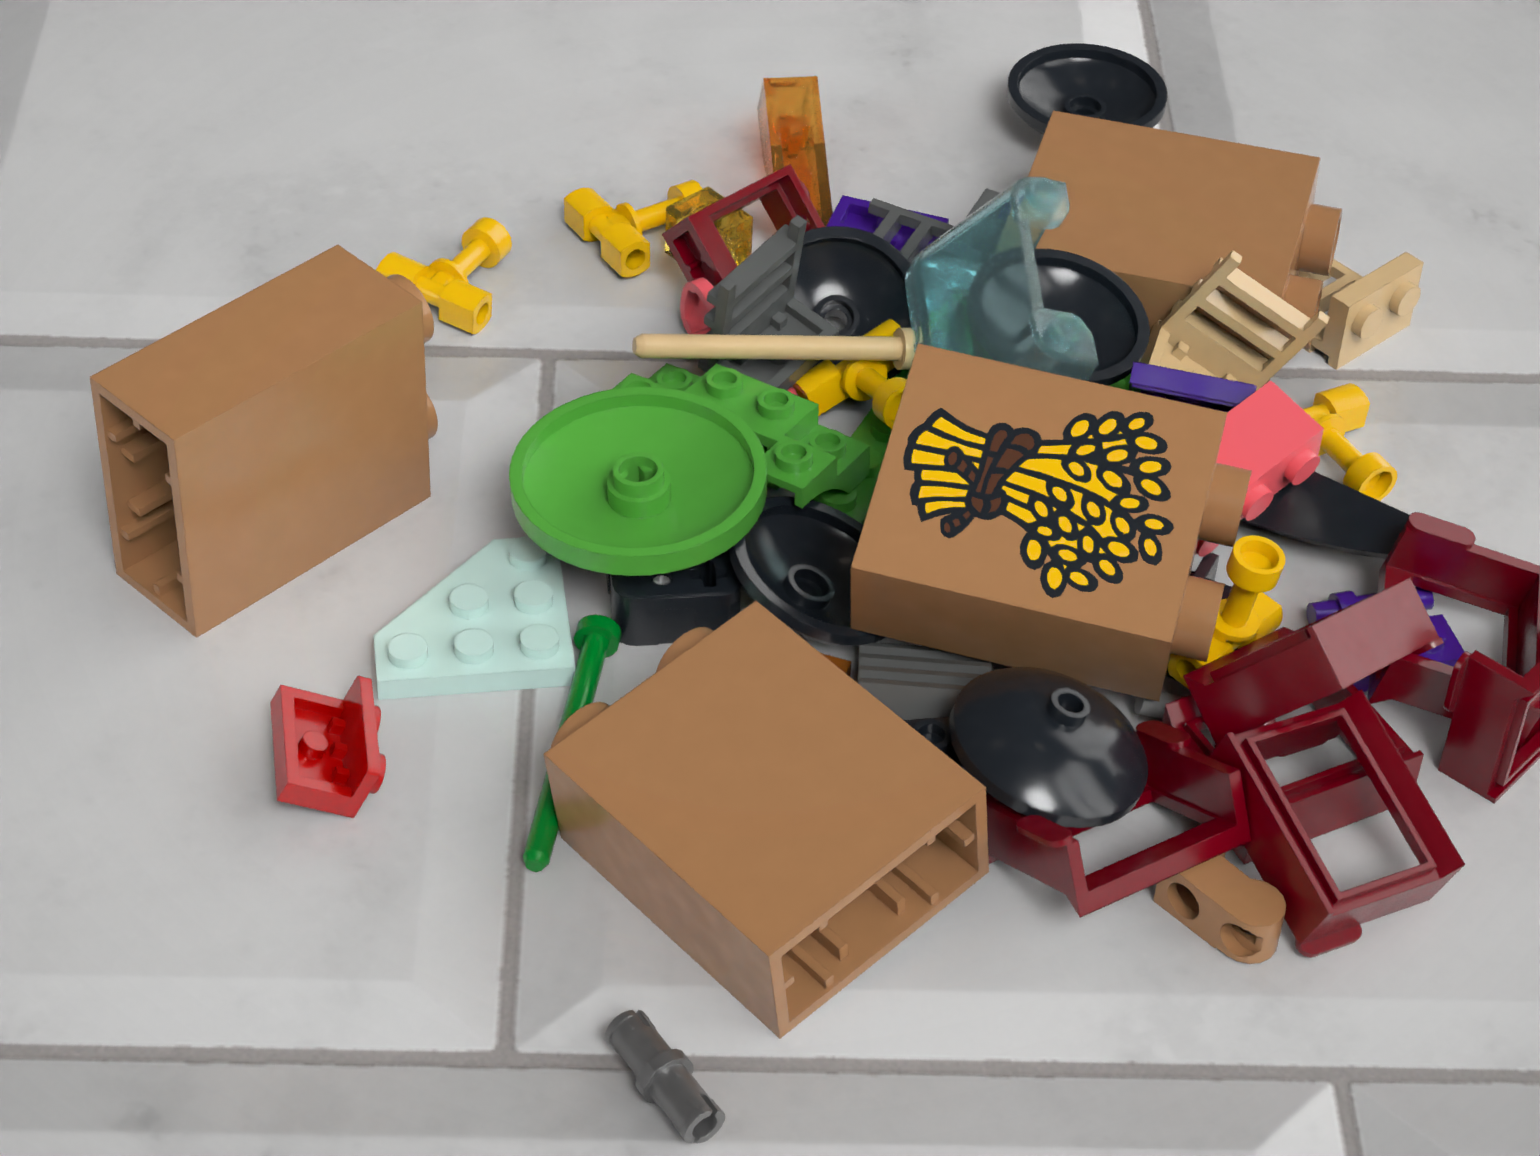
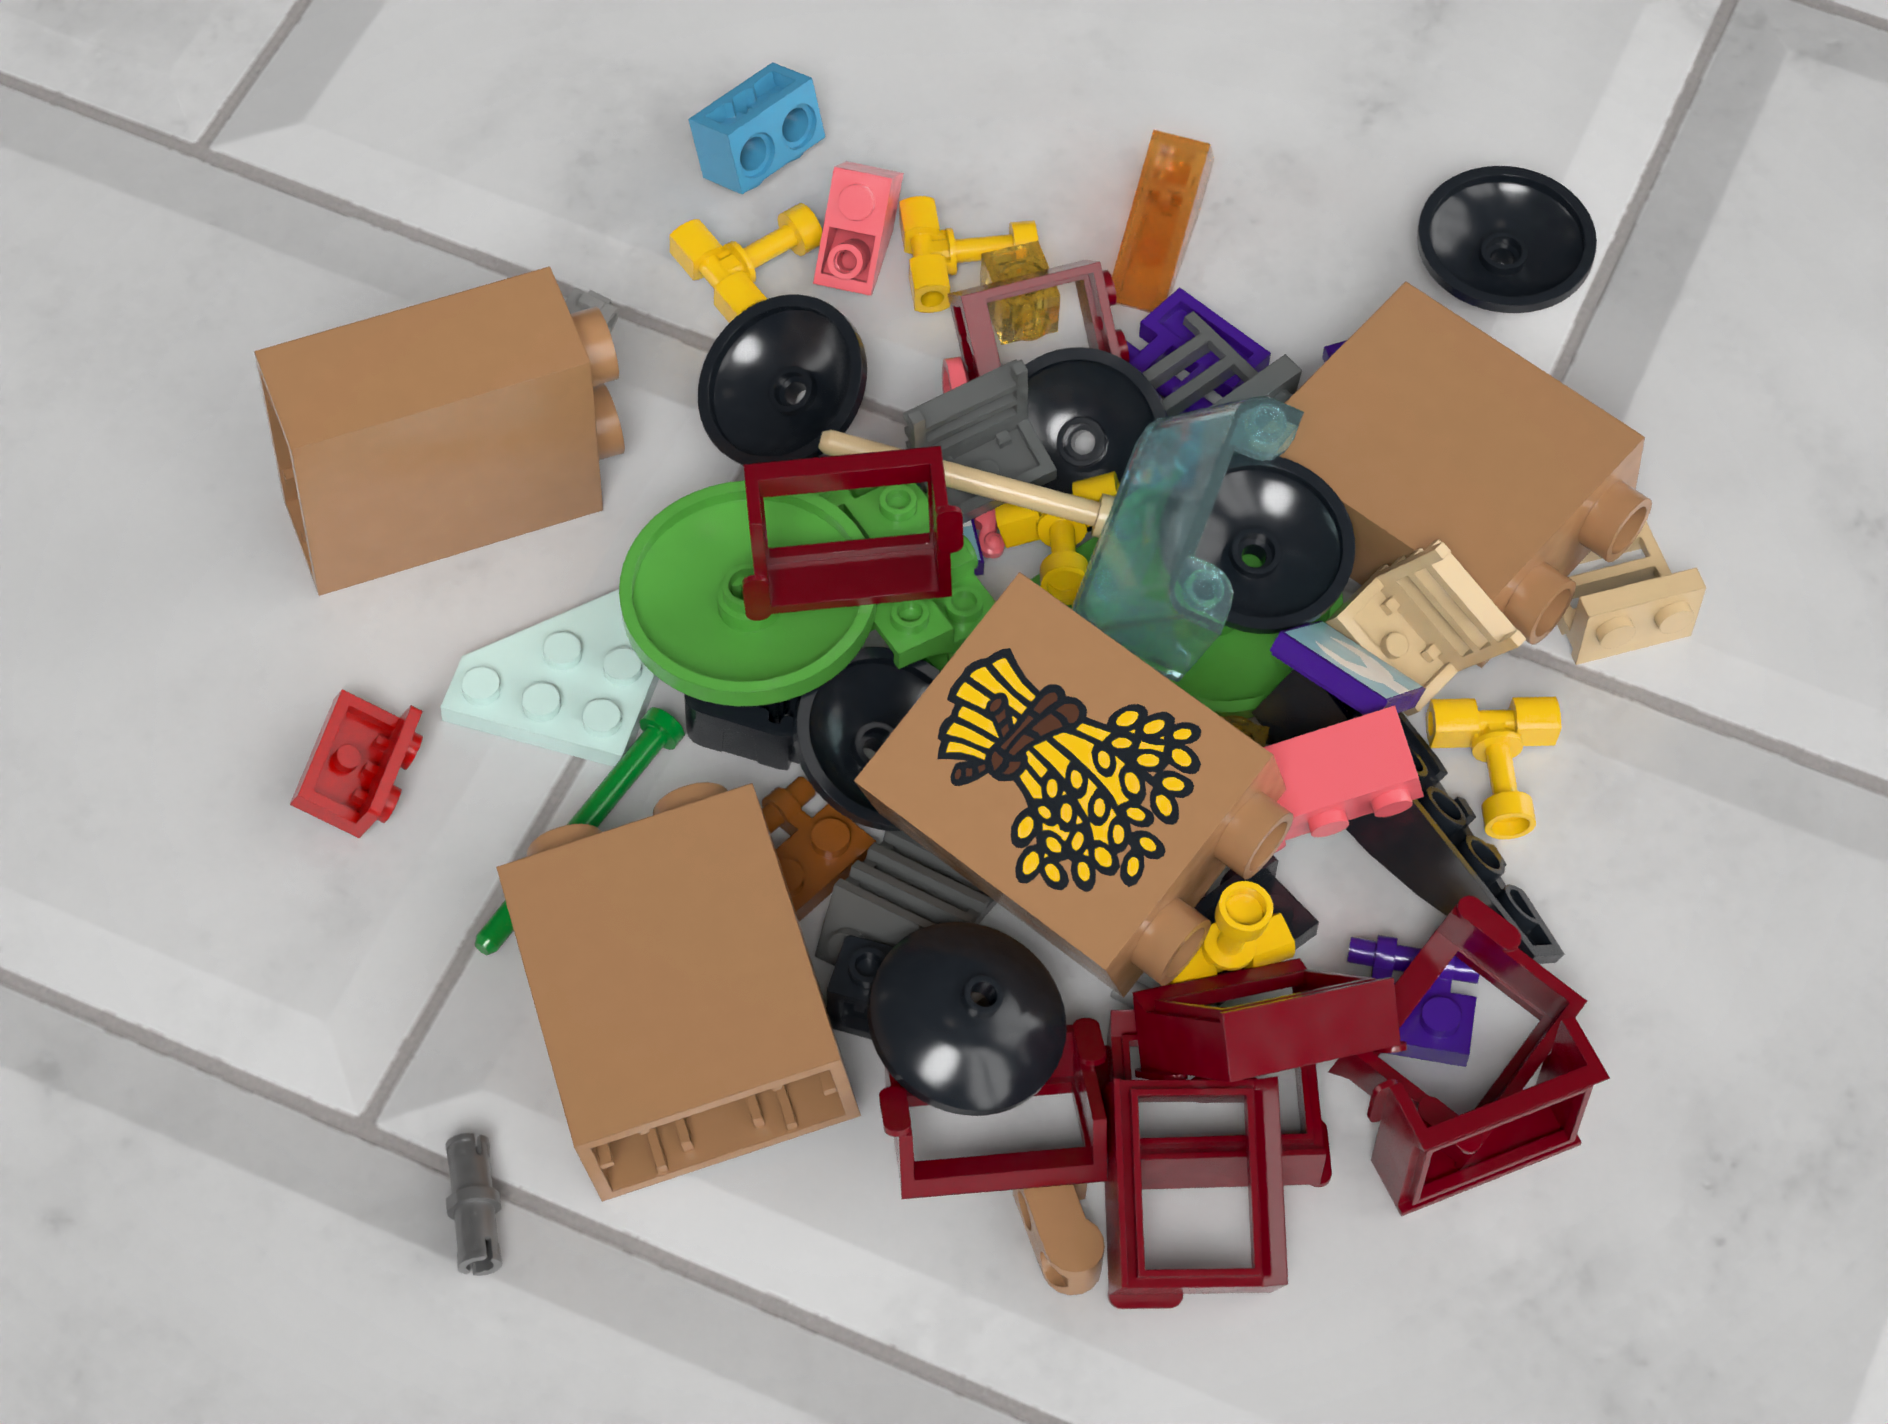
camera: 25 degrees right, 15 degrees up
(408, 176) = (757, 128): none -> dark azure brick
(534, 322) = (762, 367): none -> black dish
(538, 223) = (857, 226): none -> coral slope
(749, 420) = (858, 569): none -> dark red piece

